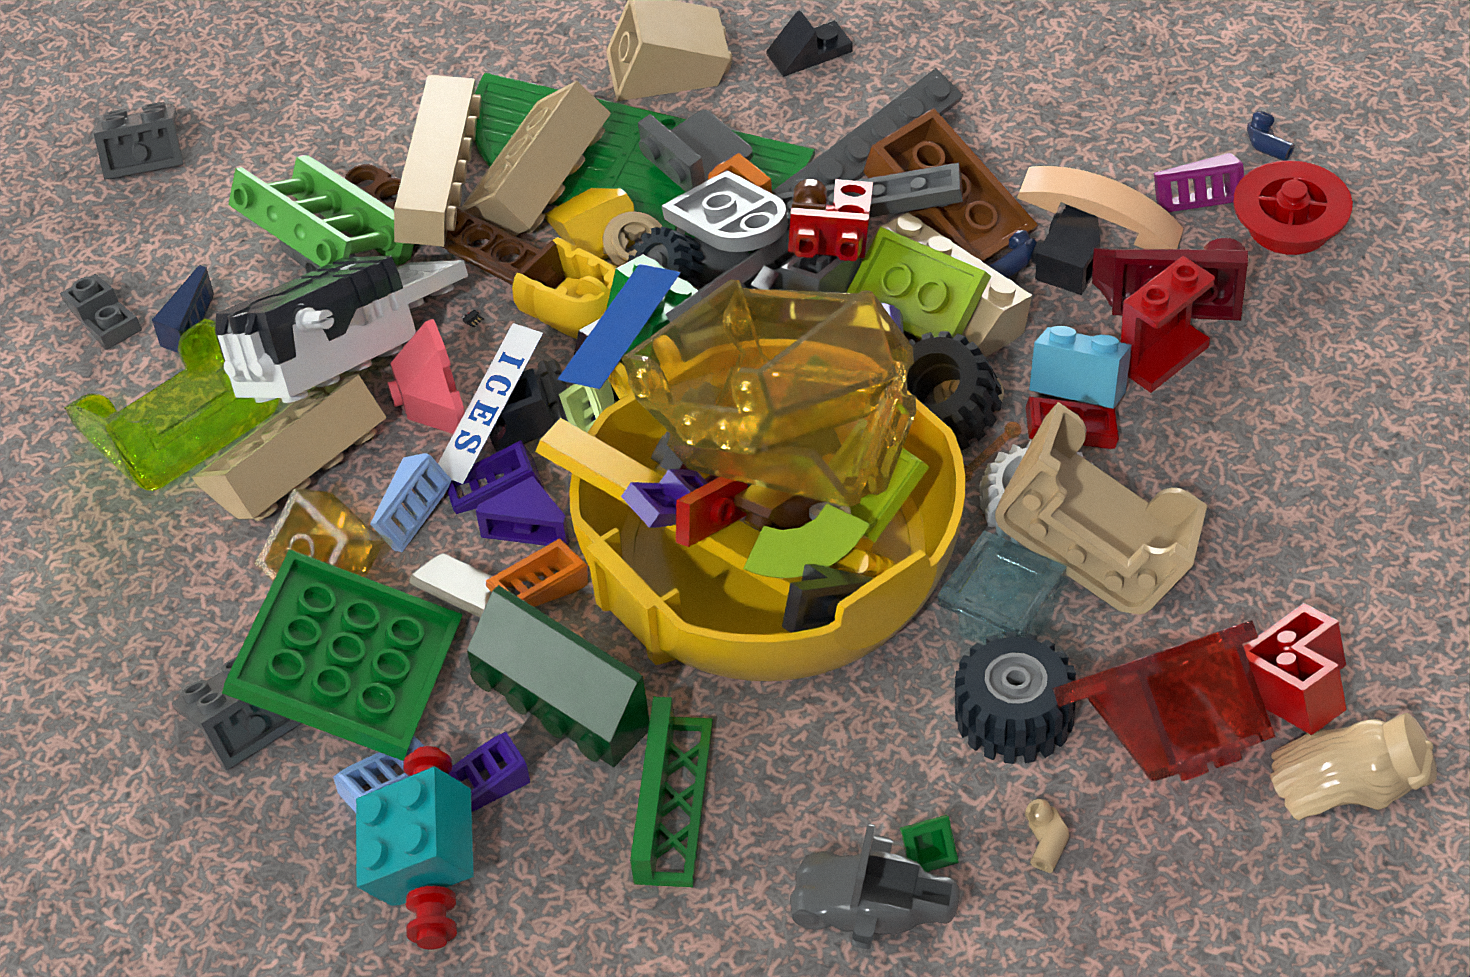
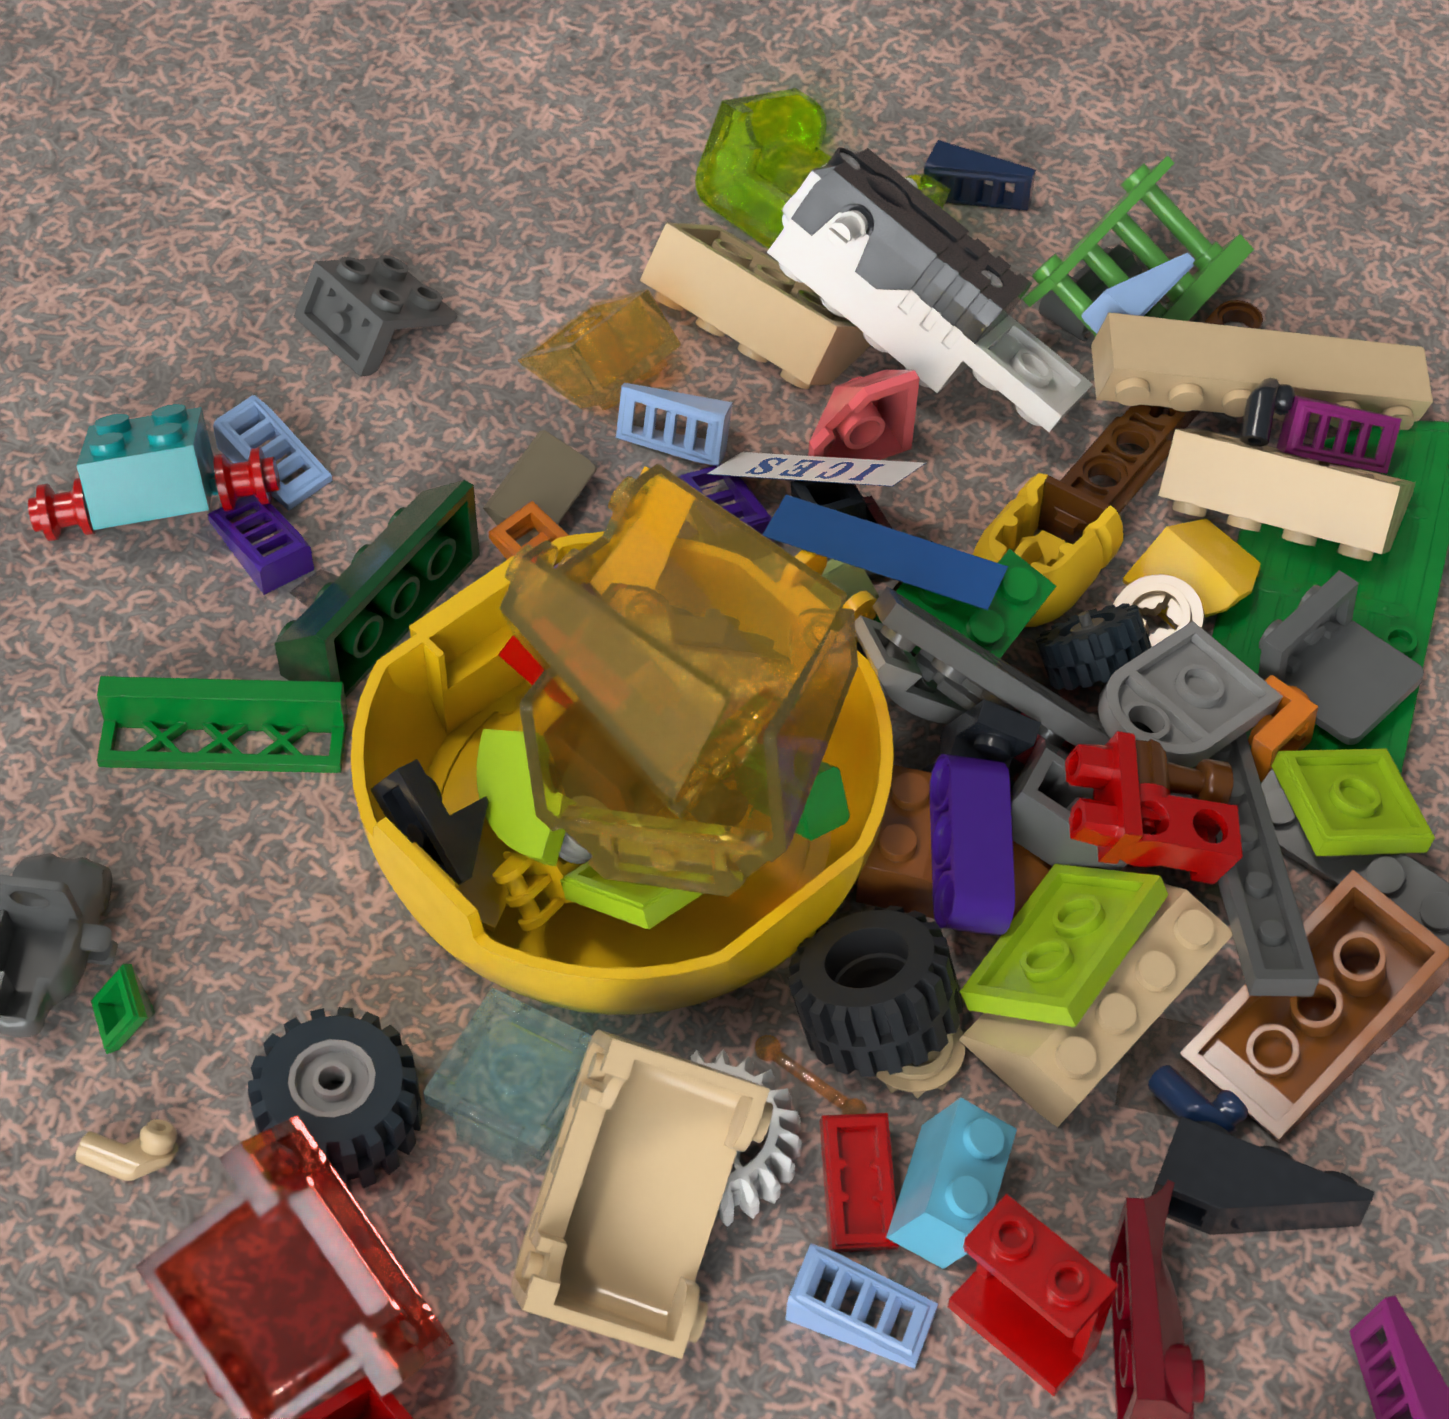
camera: 80 degrees right, 5 degrees up
(100, 311) = (983, 108): dark grey slope -> none
(138, 140) = (1265, 86): dark grey bracket -> none
(343, 654) = (412, 374): green plate -> none
(363, 205) = (1138, 293): none -> light blue slope
(472, 318) = (1011, 466): black piece -> none
(476, 146) = (1260, 408): none -> black arm
(496, 129) = (1296, 424): none -> magenta slope
(806, 152) = (1352, 802): none -> lime tile
(1103, 198) = (1306, 1223): light nougat slope -> none
(1148, 452) = (828, 1320): none -> light blue slope

